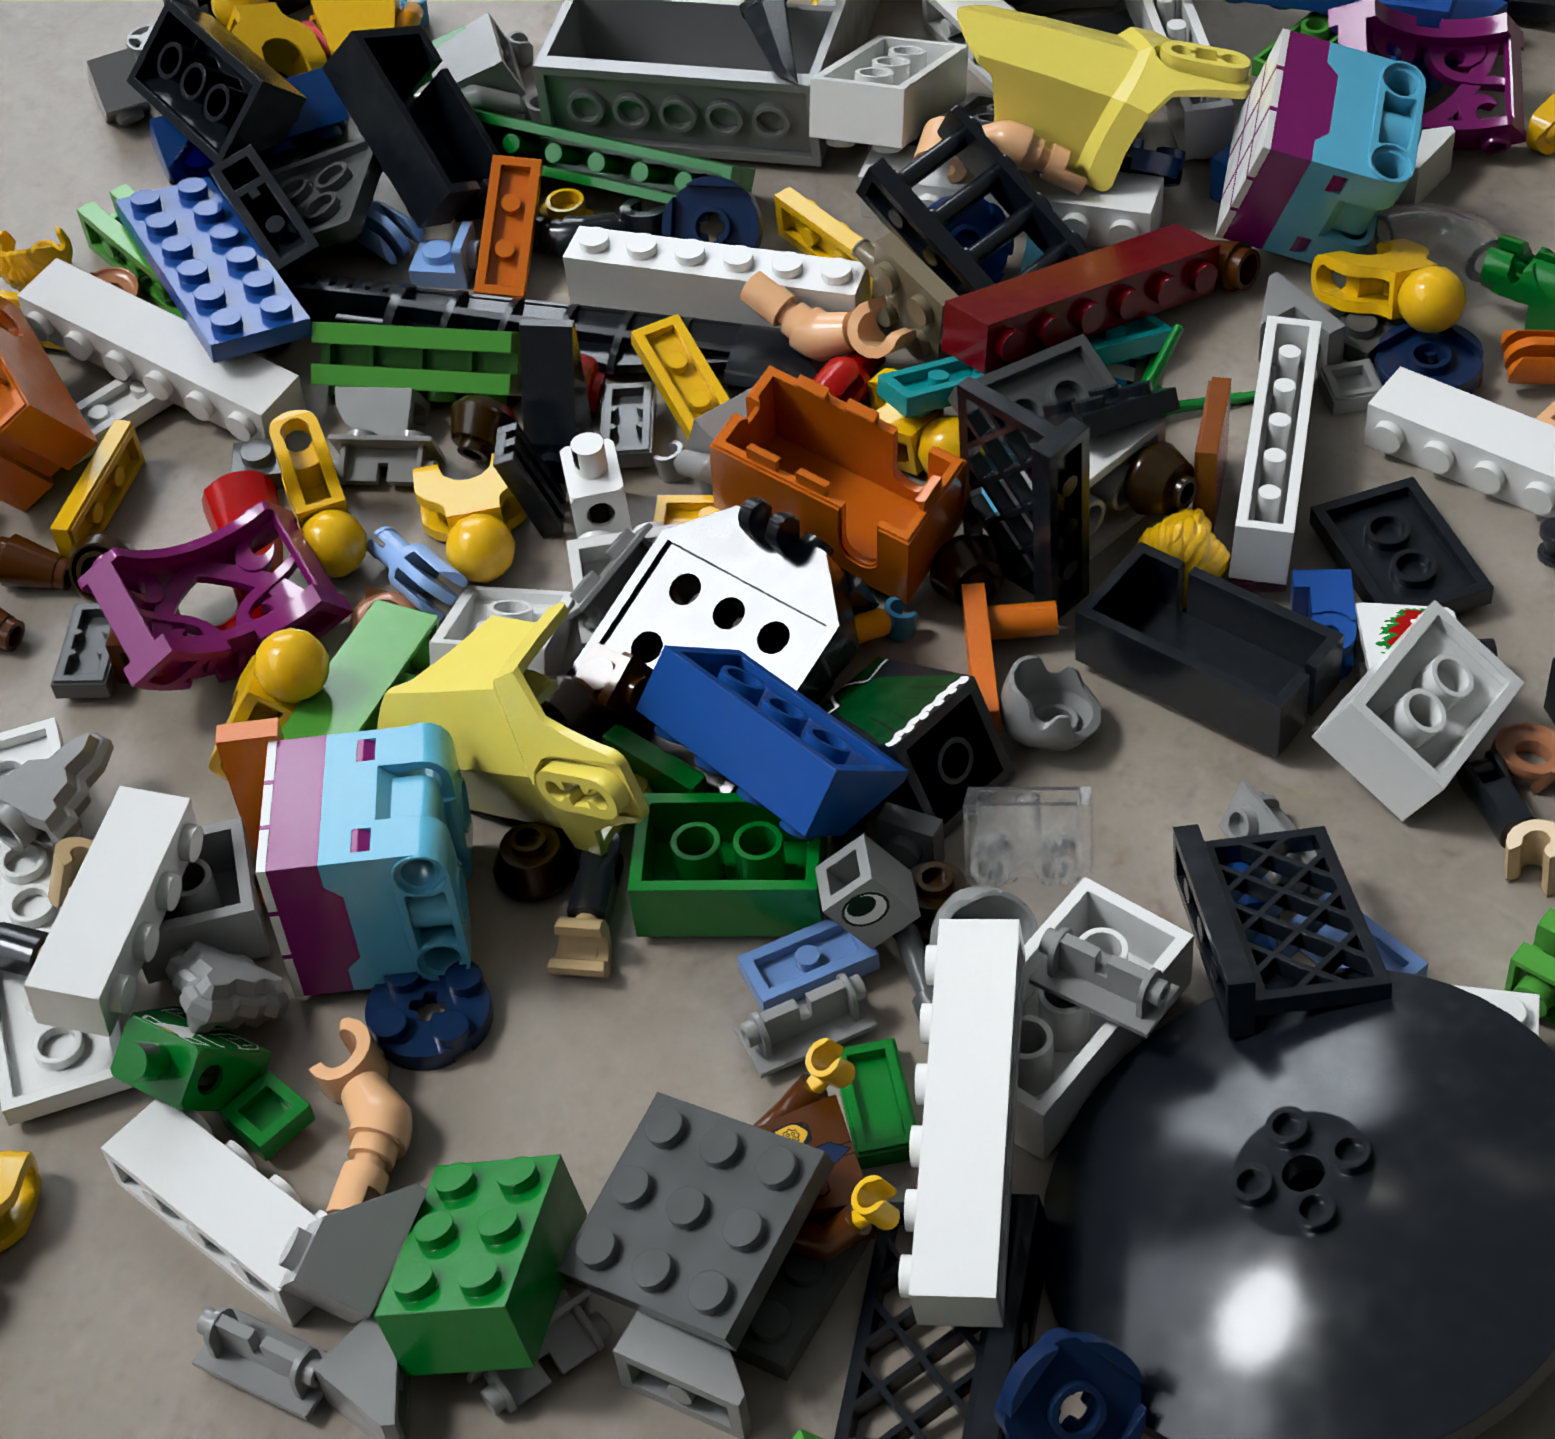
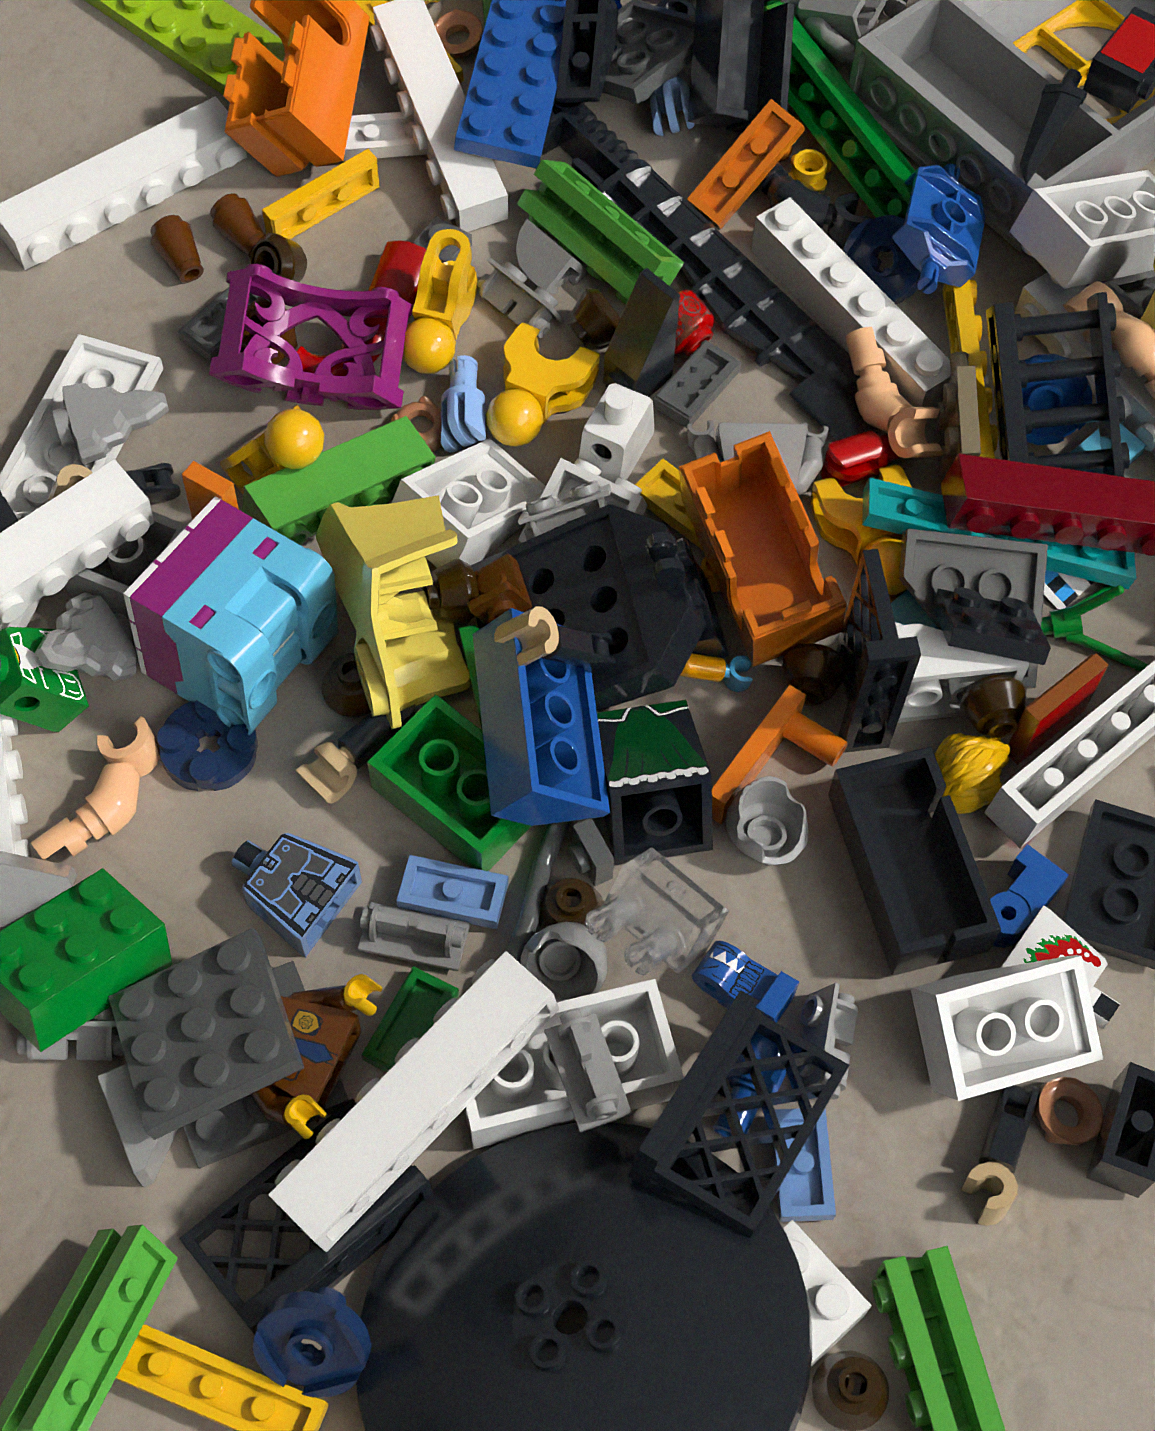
camera: 30 degrees right, 15 degrees up
(267, 1115) = (56, 746): green plate -> none
(445, 262) = (692, 156): light blue bracket -> none
(529, 480) = (588, 383): black tile -> none
(641, 1052) = (296, 887): none -> torso
(678, 370) = (759, 370): yellow plate -> none
(731, 649) = (547, 640): none -> piece
(746, 166) = (941, 227): none -> blue plate
(867, 891) = (511, 879): light grey brick -> none
(1140, 850) = (729, 970): none -> blue leg

